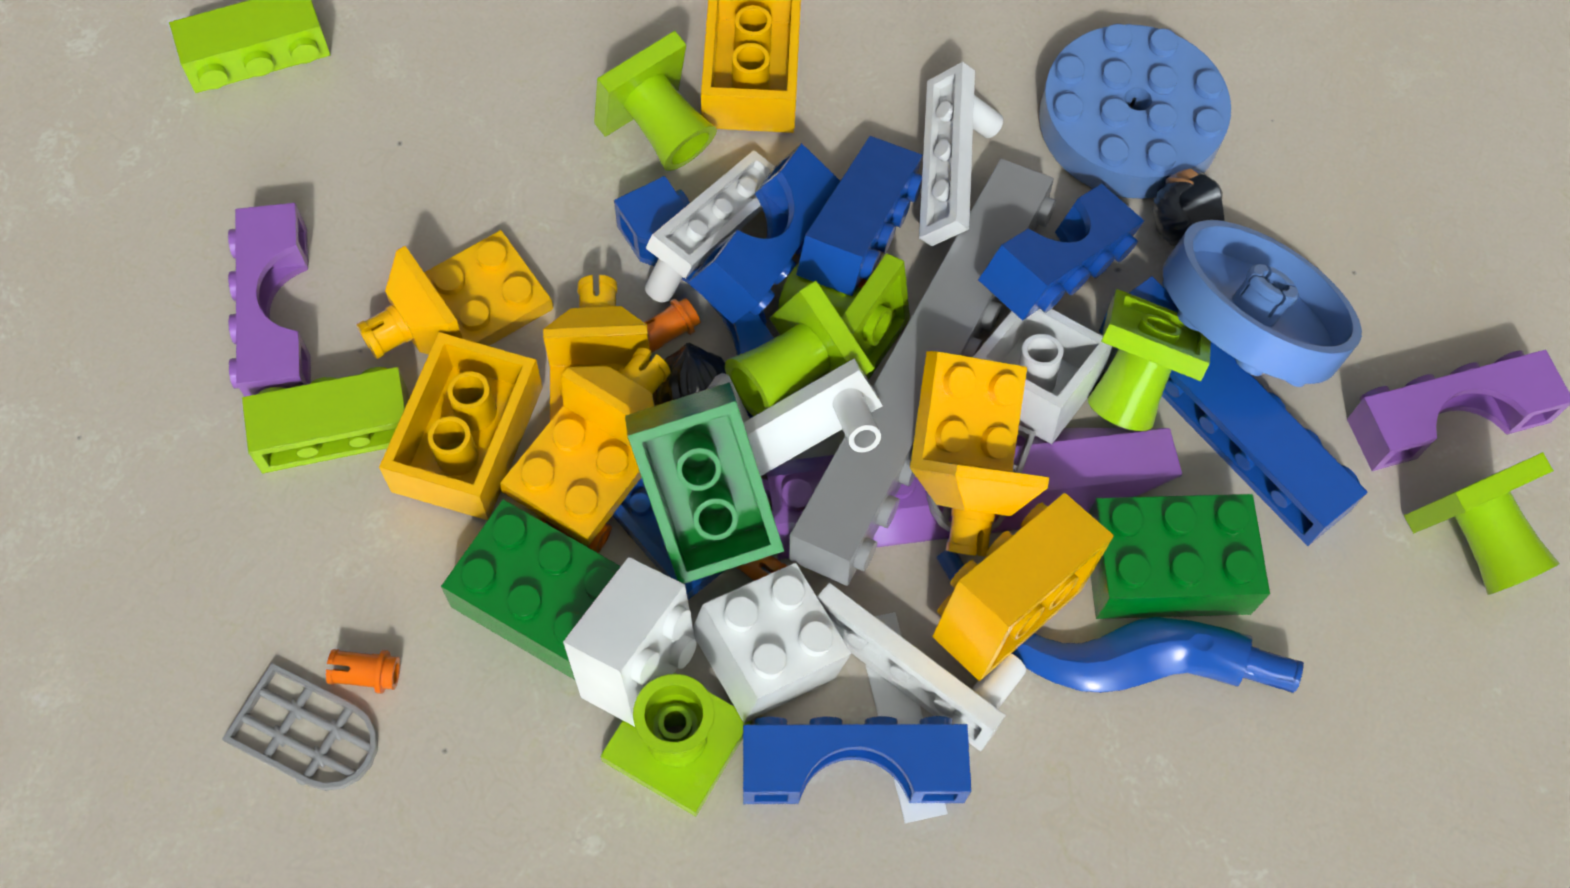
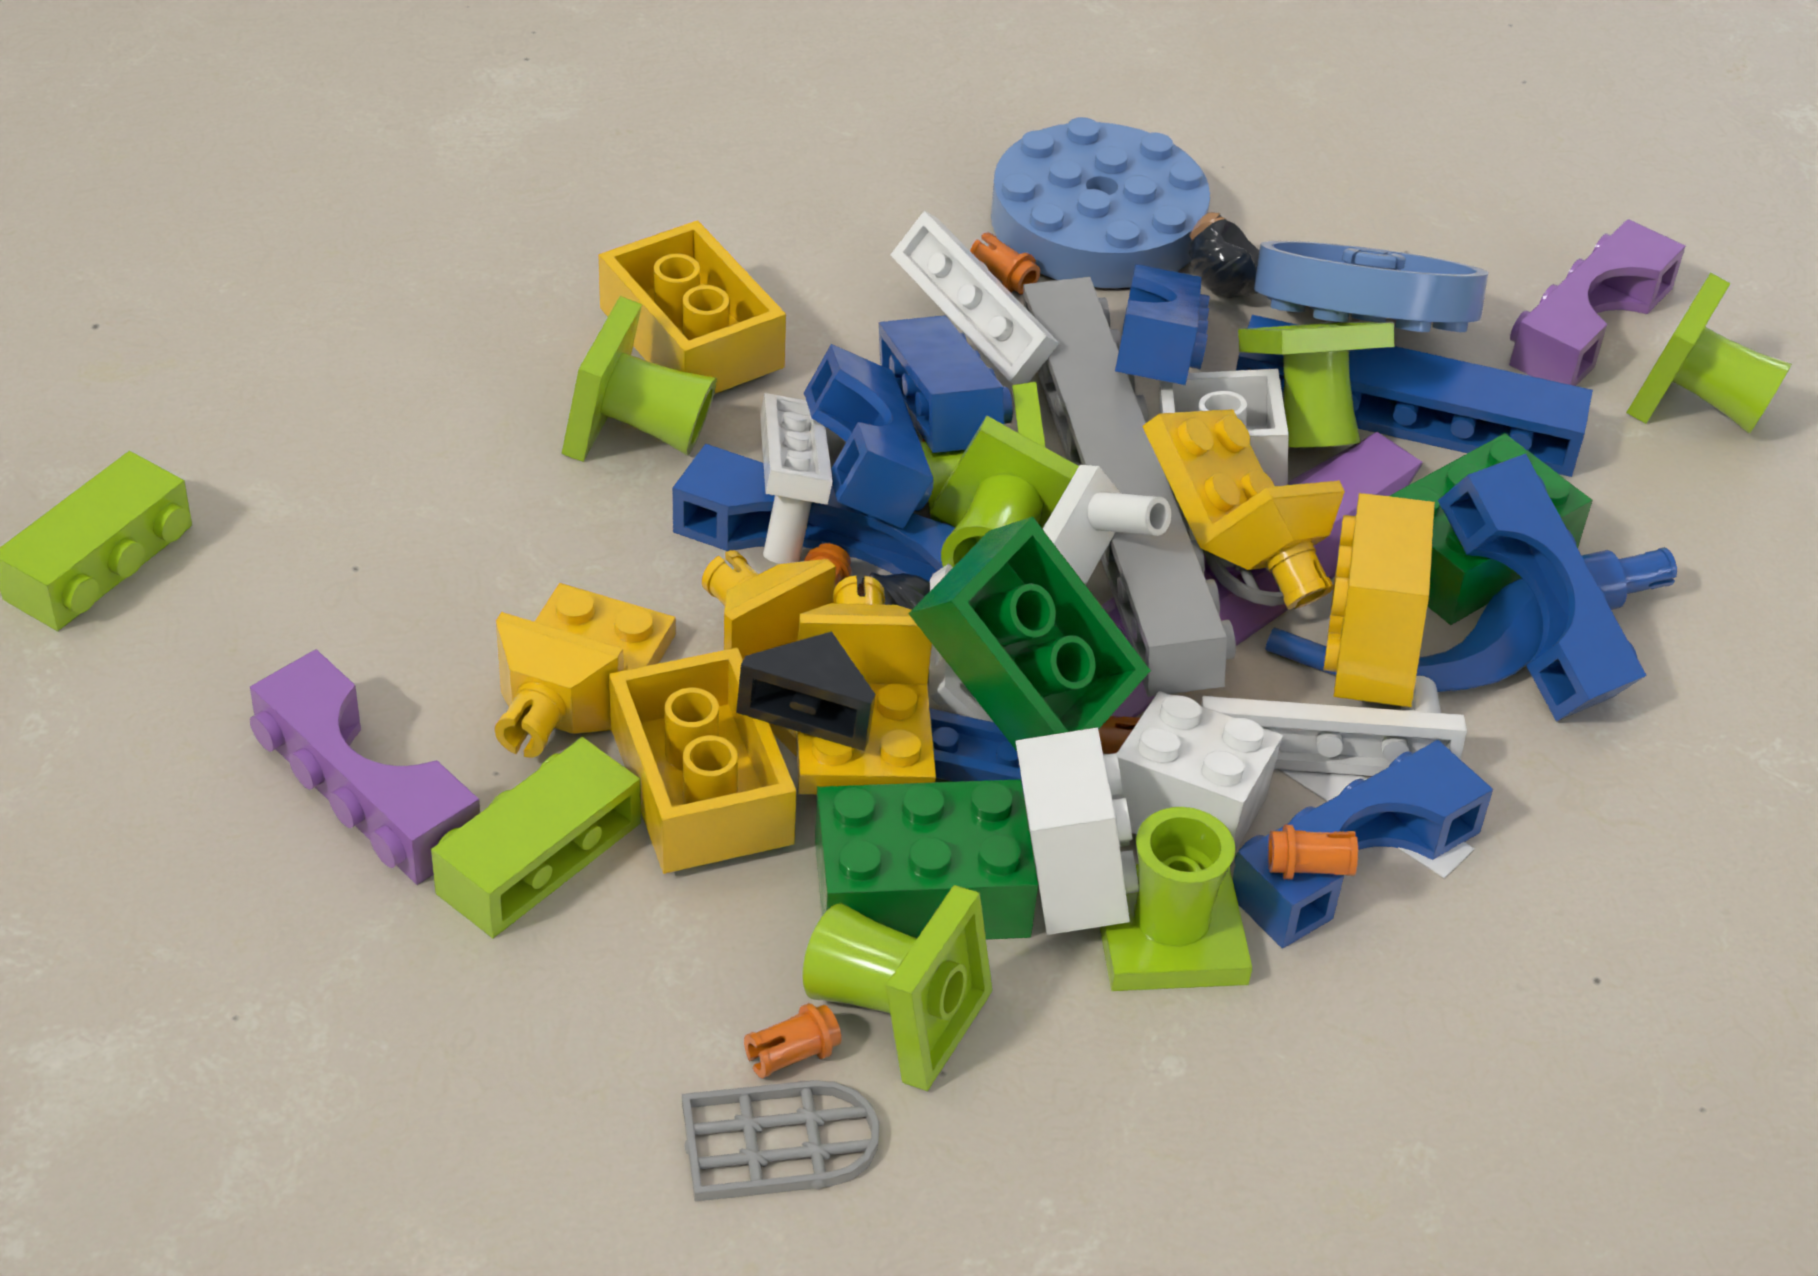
camera: 35 degrees left, 20 degrees down
(451, 688) = (924, 982): none -> lime plant
(537, 425) = (808, 690): none -> black slope
(782, 764) = (1312, 852): none -> orange pin
(1022, 127) = (1005, 263): none -> orange pin
(1150, 717) = (1511, 519): none -> blue arch

